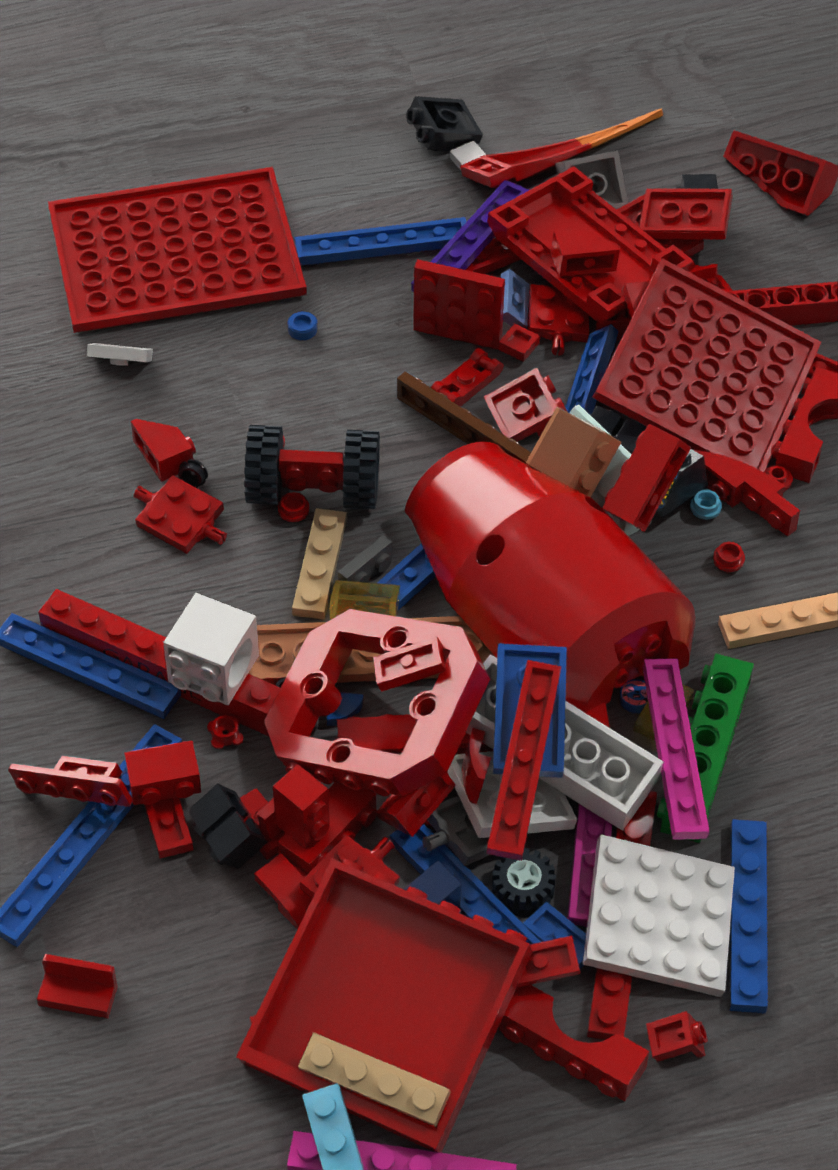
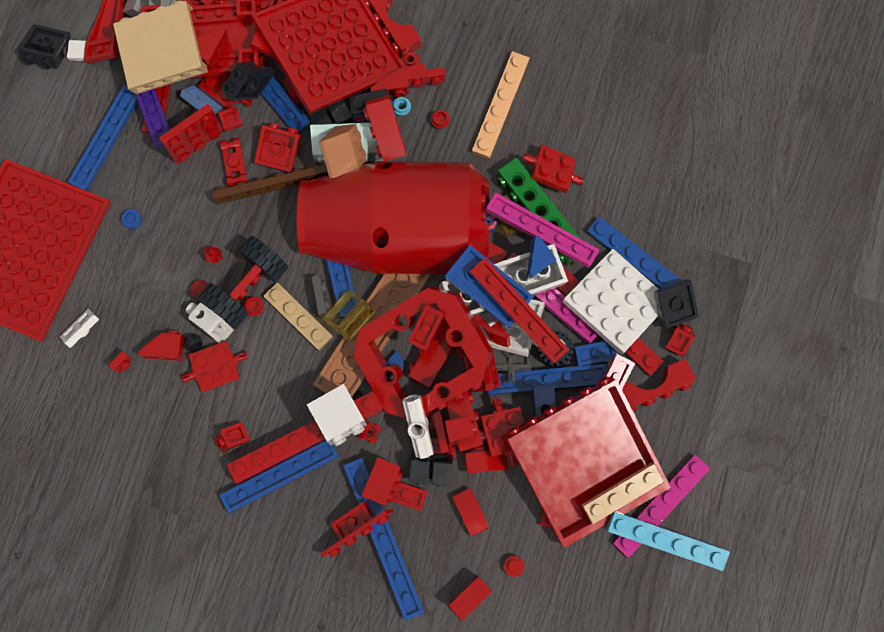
camera: 55 degrees left, 25 degrees up
(100, 583) = (231, 437): none -> red bracket
(108, 416) = (121, 362): none -> red plate
(163, 1019) = (514, 566): none -> red plate
(201, 917) = (470, 512): none -> red slope
(228, 461) = (209, 322): none -> white torso
(270, 758) = (416, 415): none -> white piece
(325, 425) = (212, 254): none -> red plate
(533, 204) = (159, 47): none -> tan panel
(577, 318) = (247, 81): none -> black plate
(619, 747) = (539, 257): none -> blue slope
(722, 993) = (676, 304): none -> black plate
(781, 721) = (553, 168): none -> red plate

